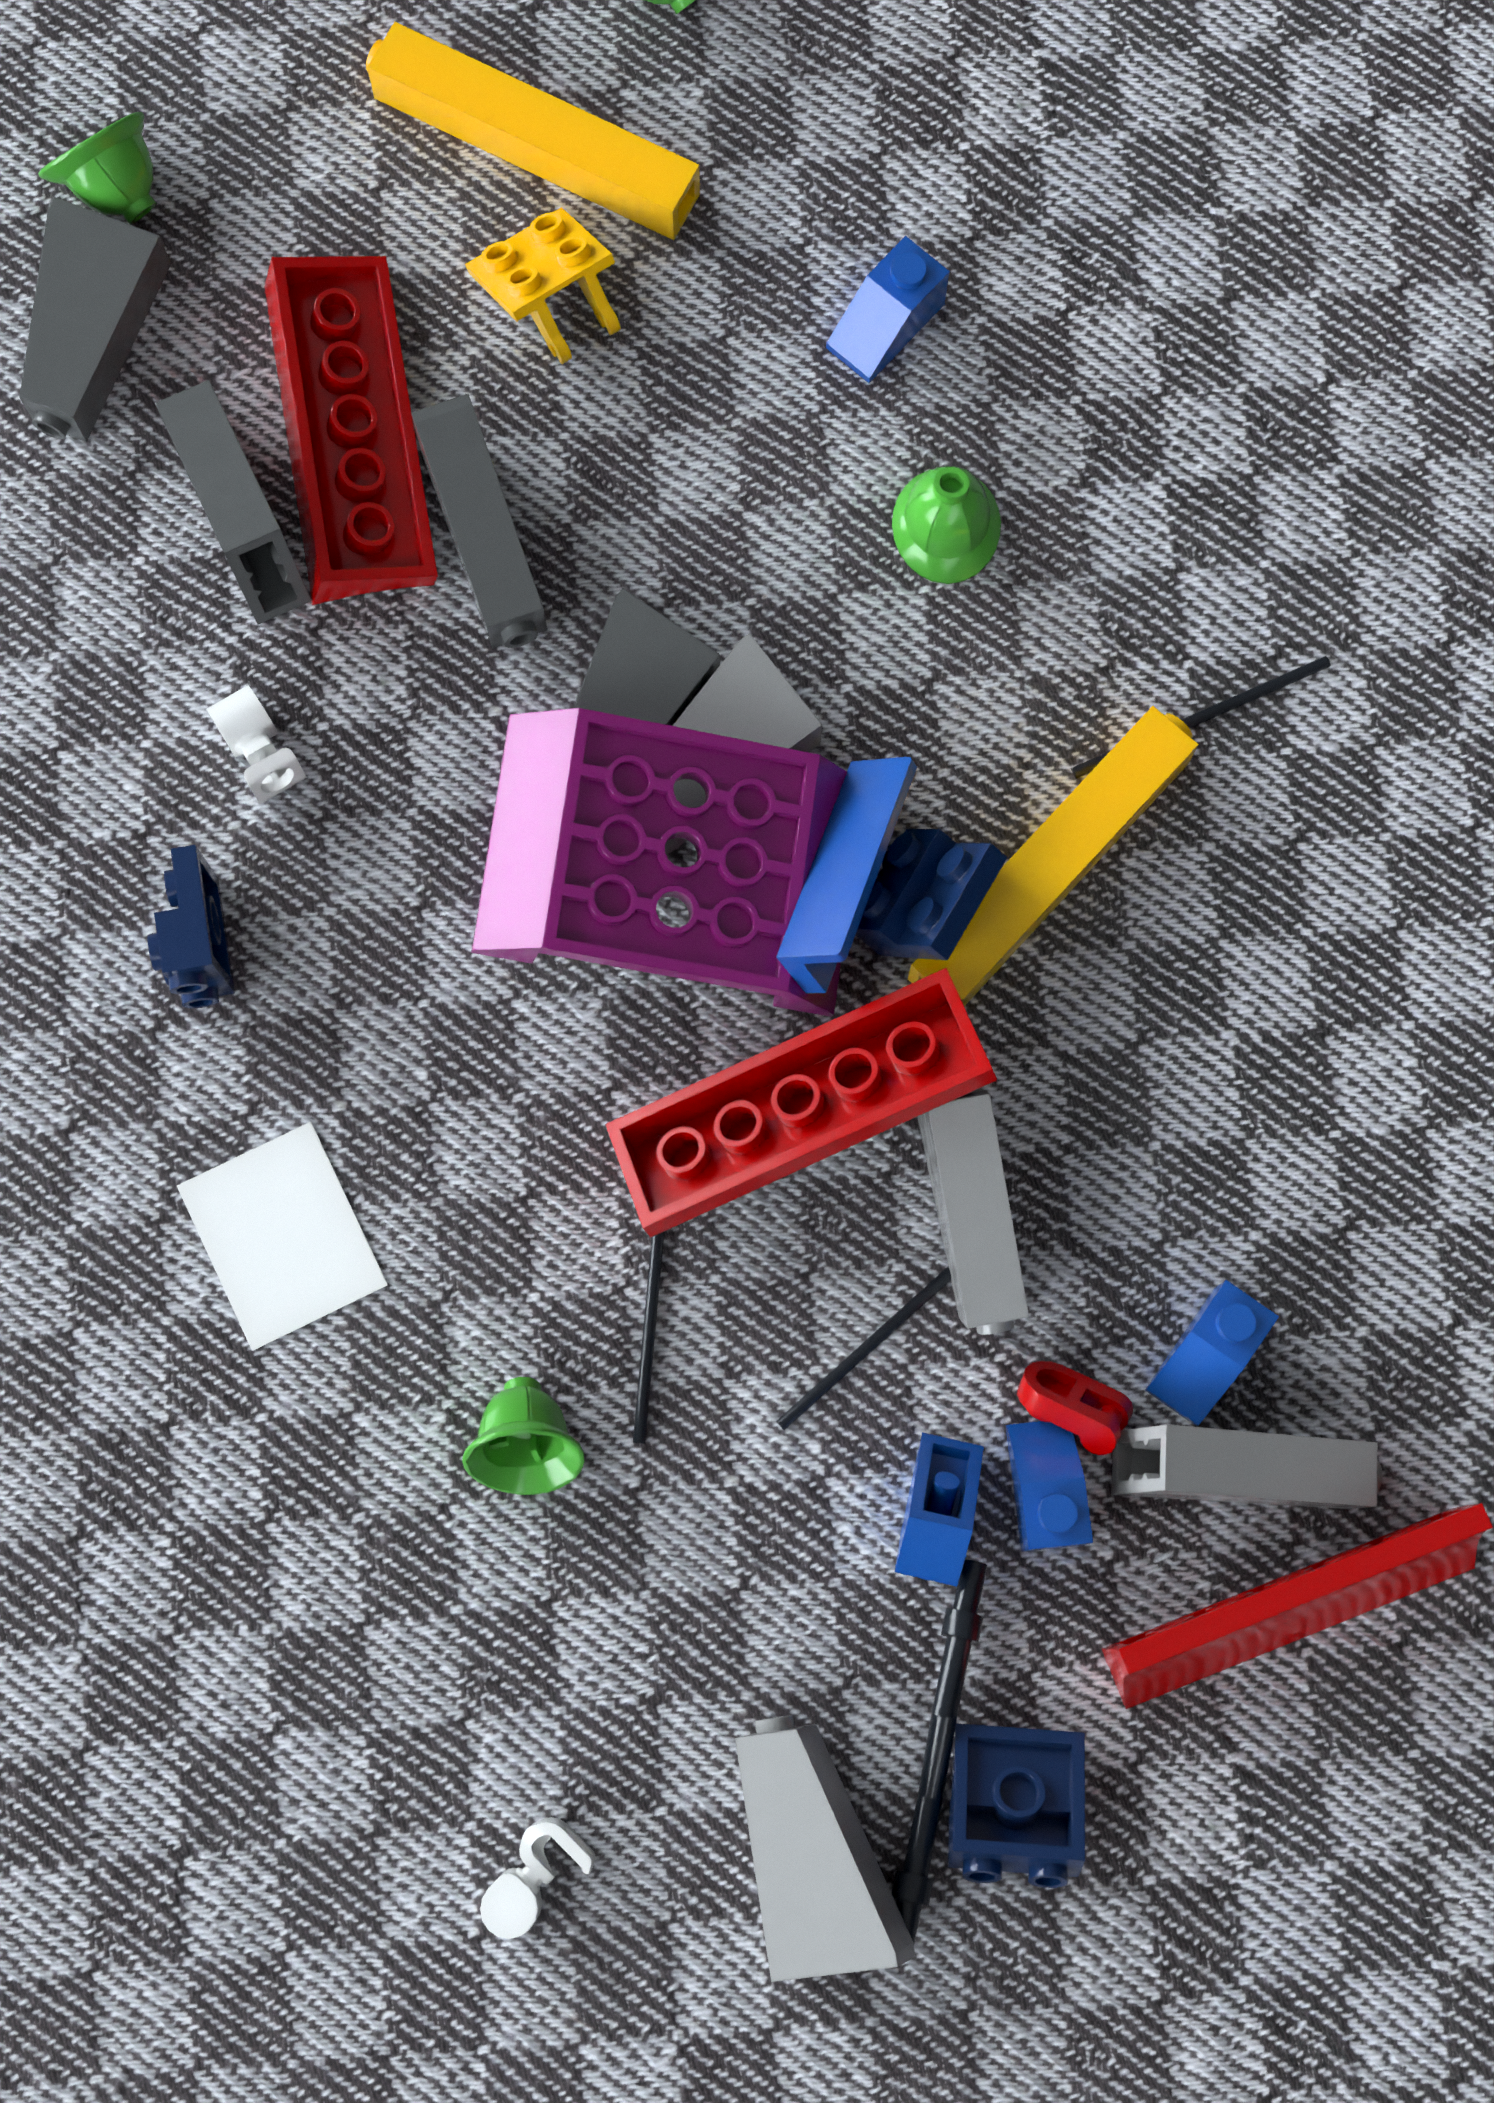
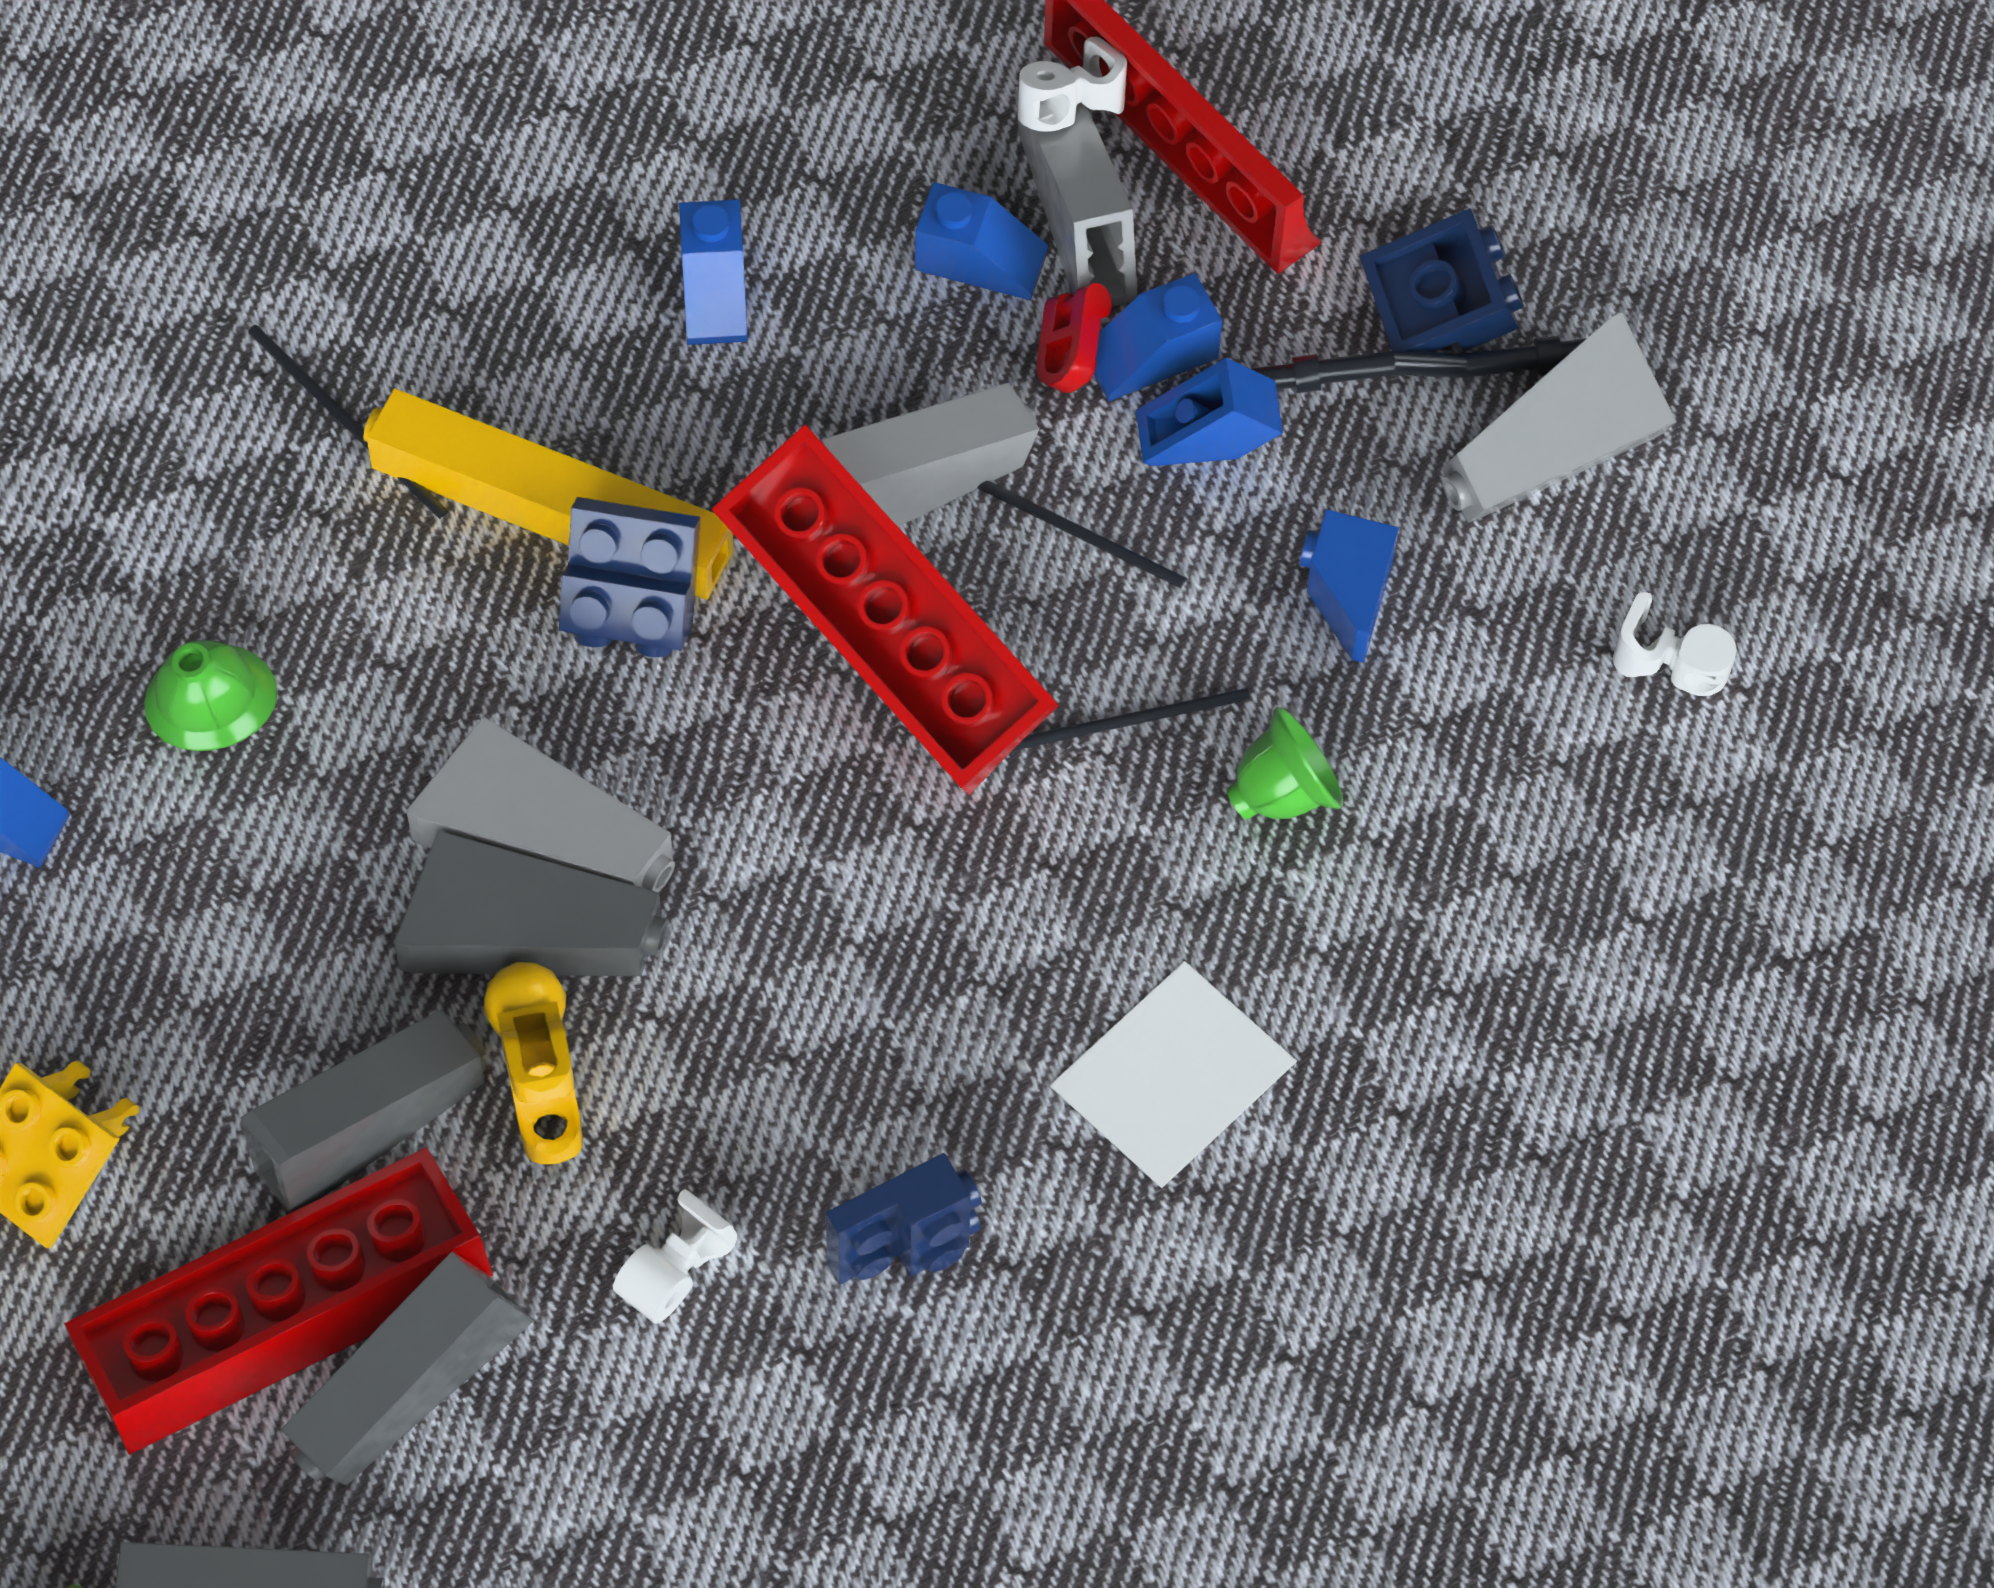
camera: 110 degrees left, 15 degrees down
(473, 675) = (527, 1011): none -> yellow piece
(585, 859) = (692, 866): magenta slope -> none
(719, 1581) = (1349, 575): none -> blue slope
(844, 870) = (629, 633): panel -> none
(1254, 1084) = (713, 272): none -> slope
(1338, 1461) = (1052, 91): none -> white leg

